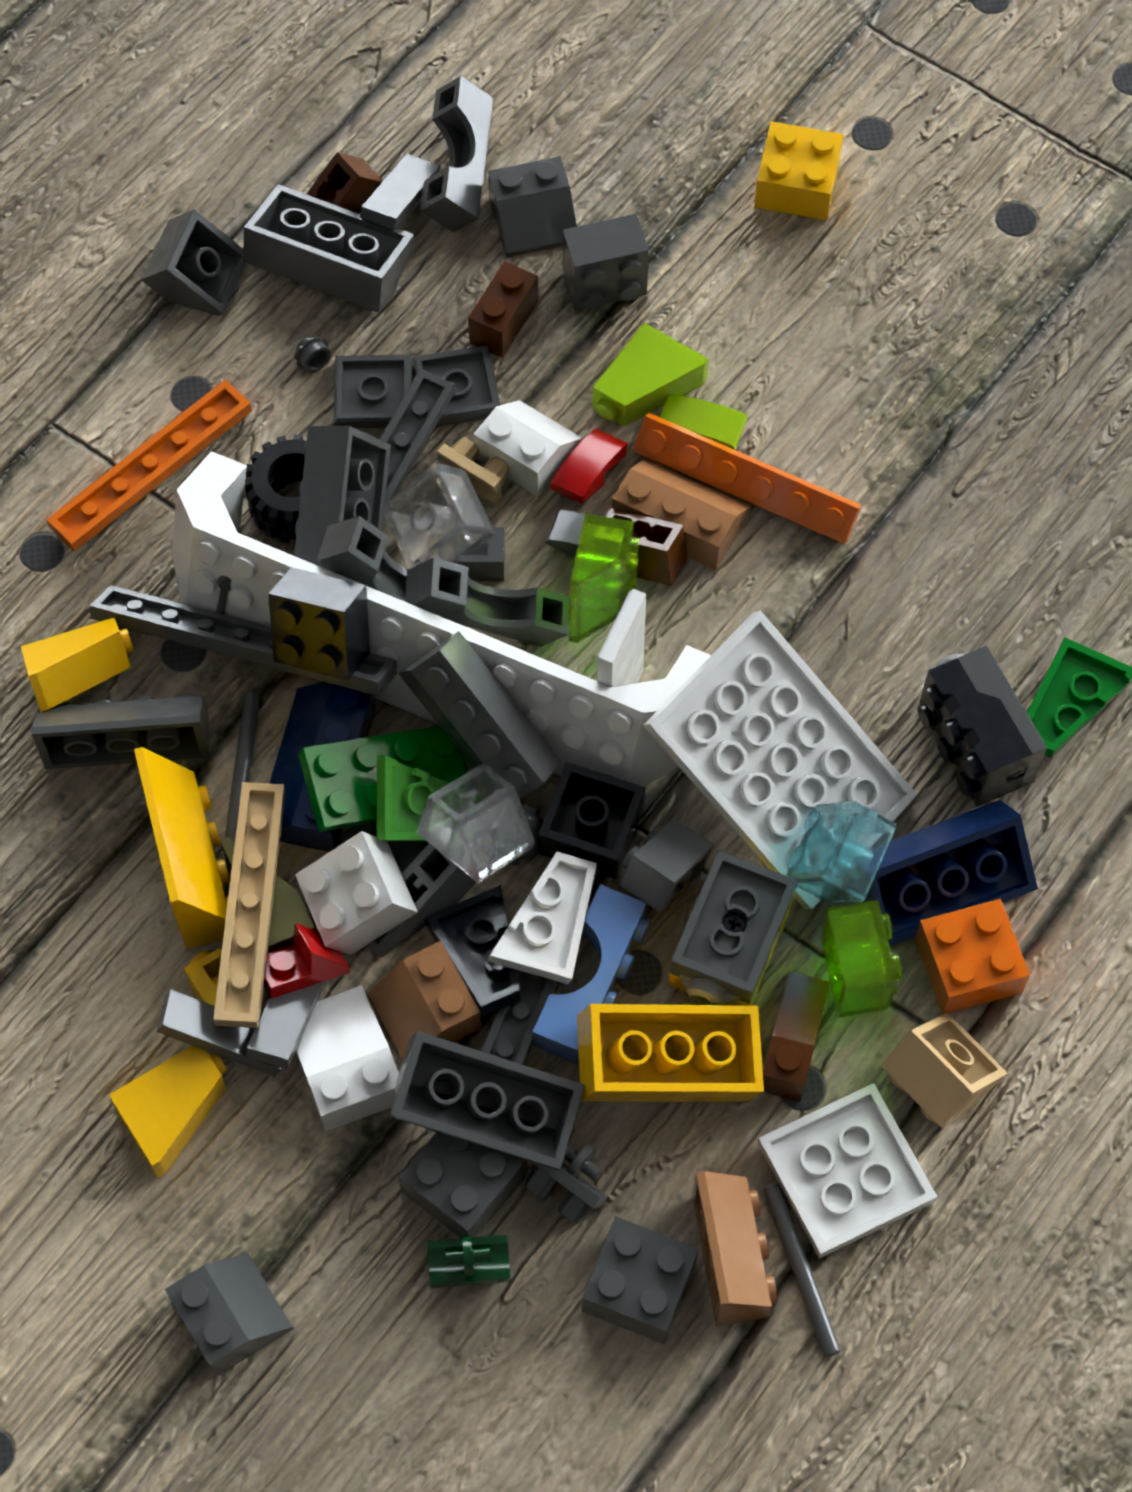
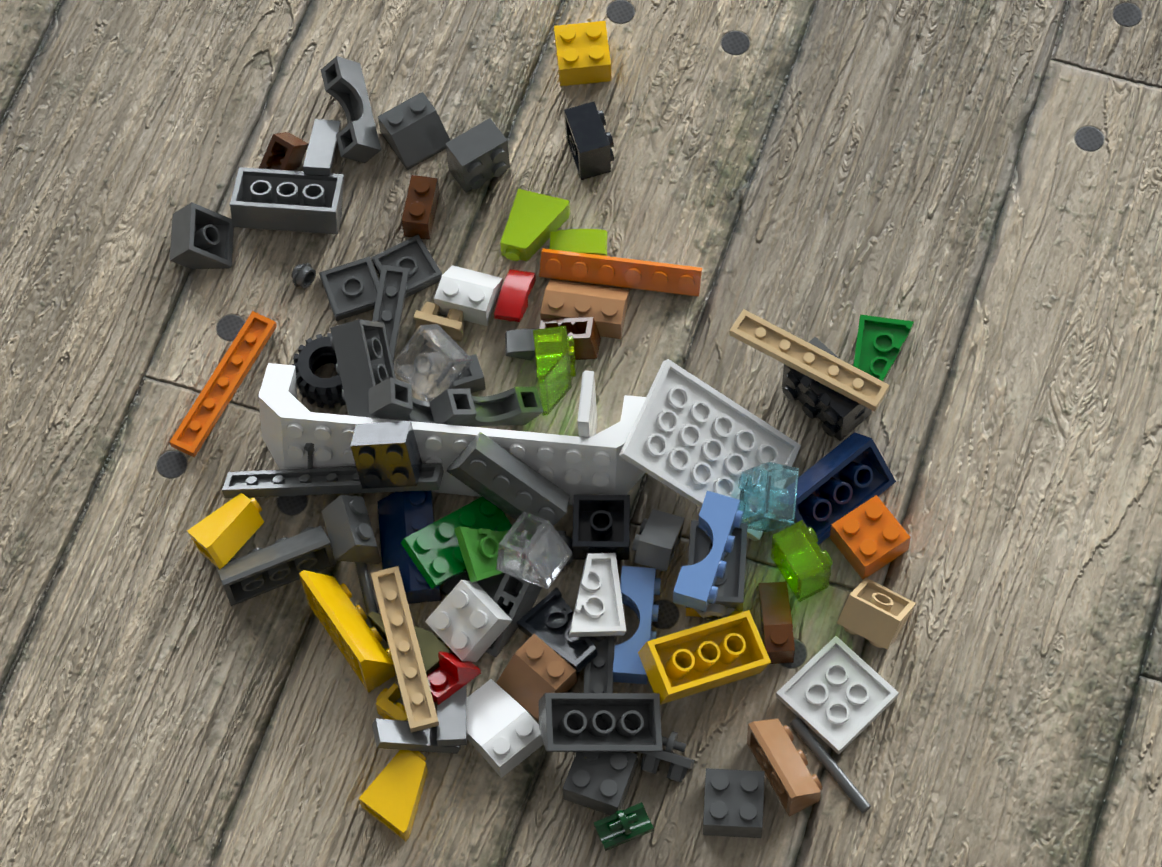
camera: 15 degrees left, 0 degrees up
(242, 716) = (351, 530): none -> dark grey slope
(693, 942) = (697, 582): none -> medium blue arch
(765, 286) = (588, 140): none -> black brick
(966, 676) = (809, 360): none -> tan plate

